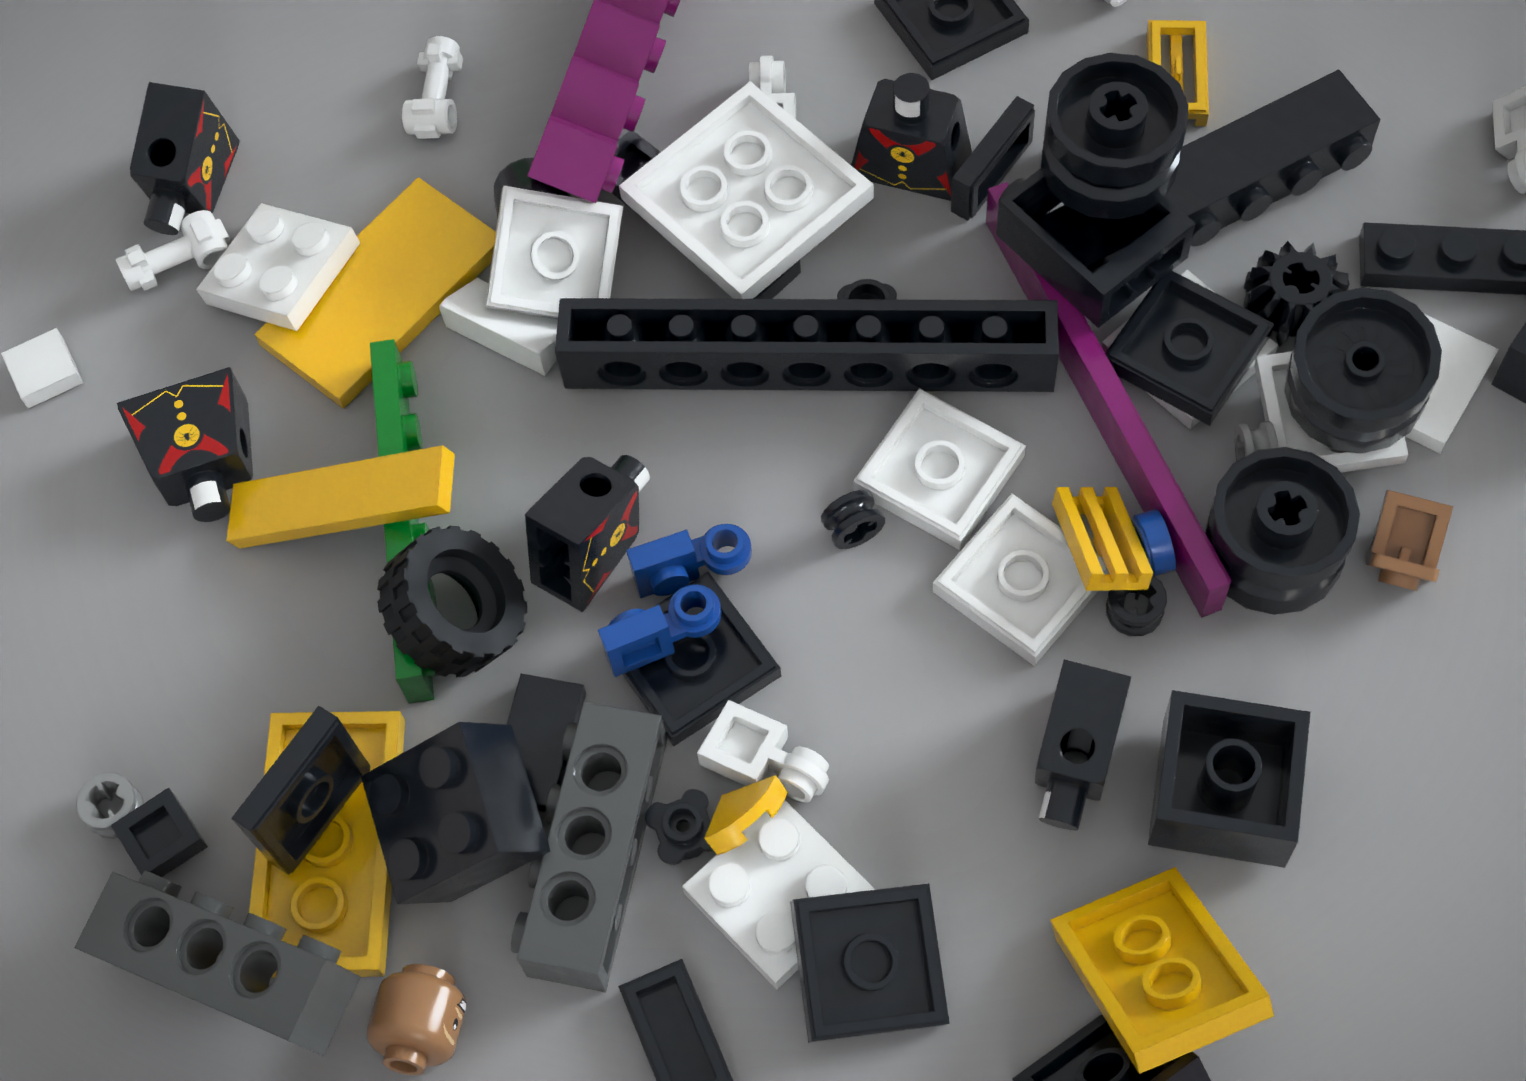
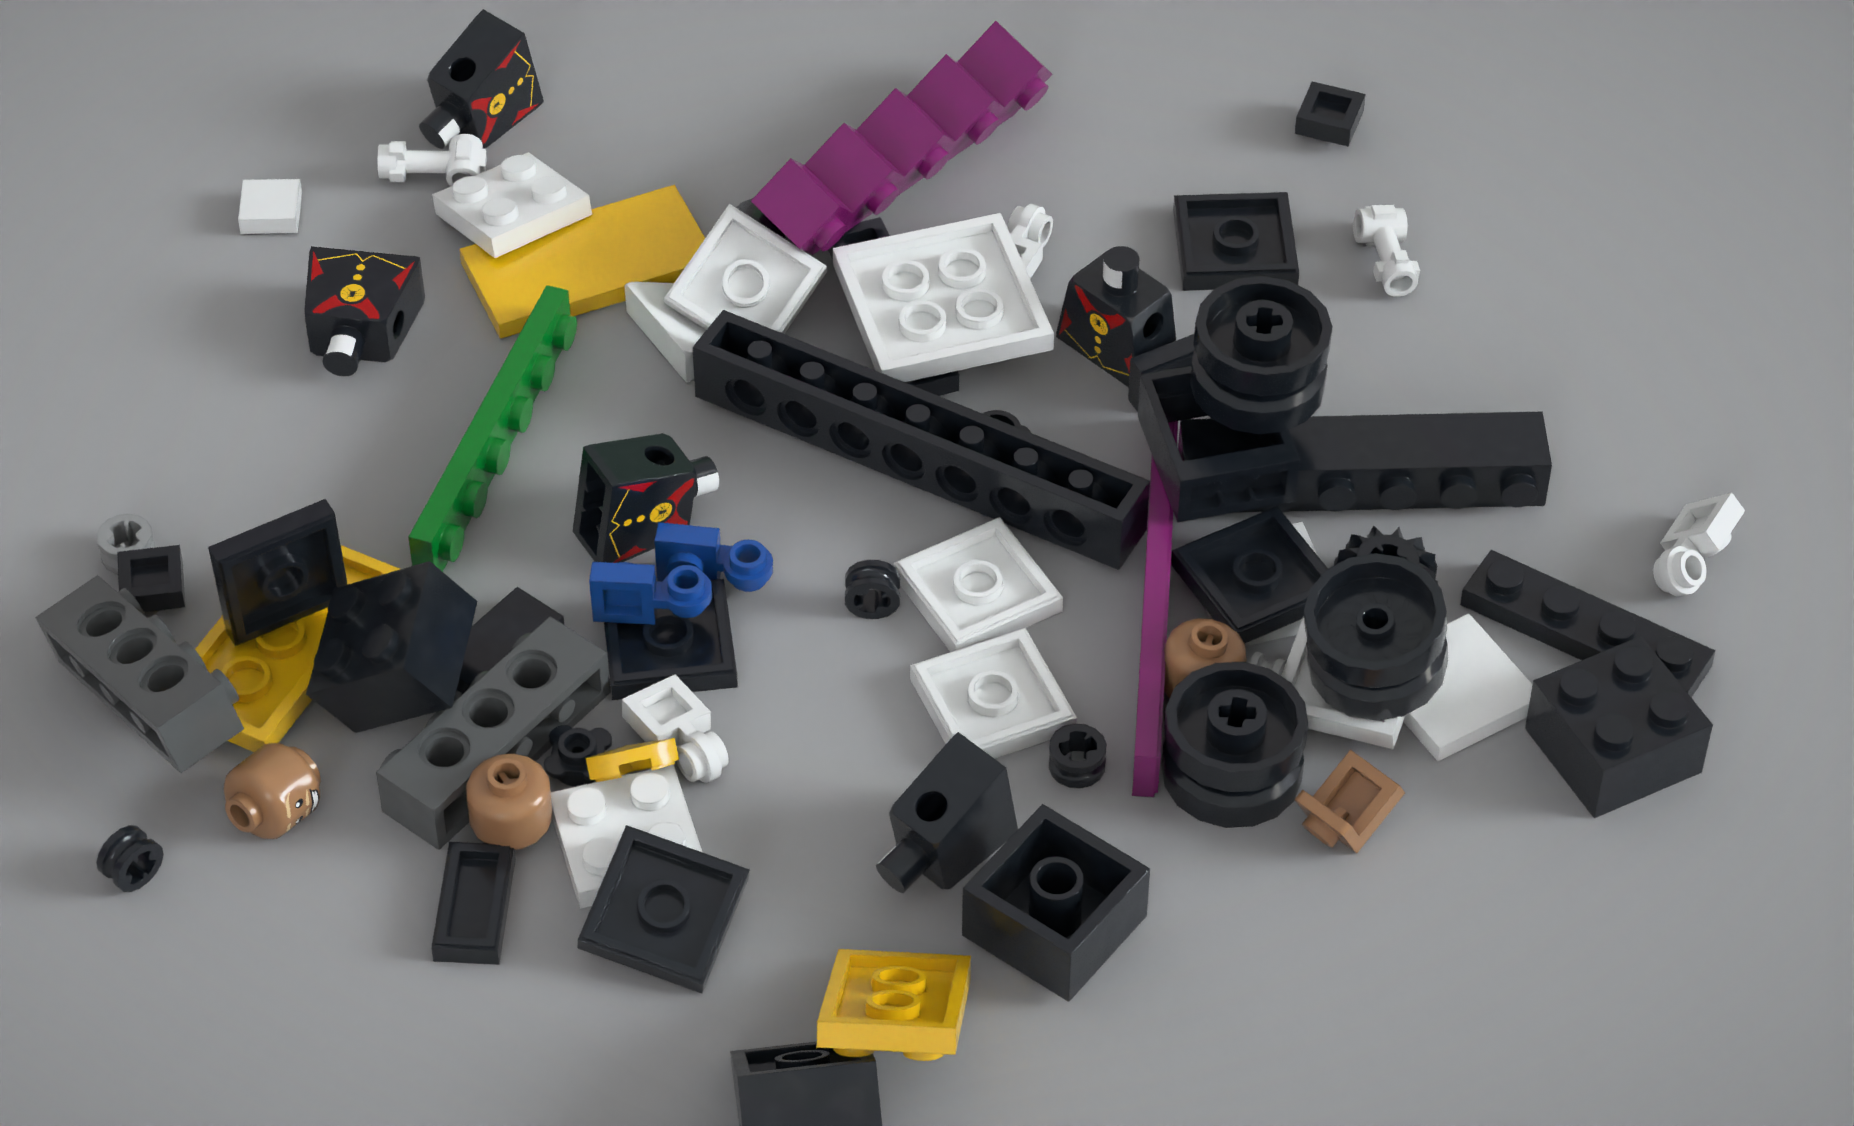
camera: 20 degrees right, 15 degrees down
(341, 497) = (449, 389): yellow tile -> none
(421, 627) = (458, 522): black tyre -> none
(433, 113) = (722, 140): white bar -> none
(657, 941) = (509, 801): none -> medium nougat head
(1113, 539) = (1084, 666): yellow tile -> none
(1155, 541) = (1120, 712): blue tile -> none
(1175, 29) = (1392, 398): yellow tile -> none
(1200, 454) = (1198, 645): none -> medium nougat head

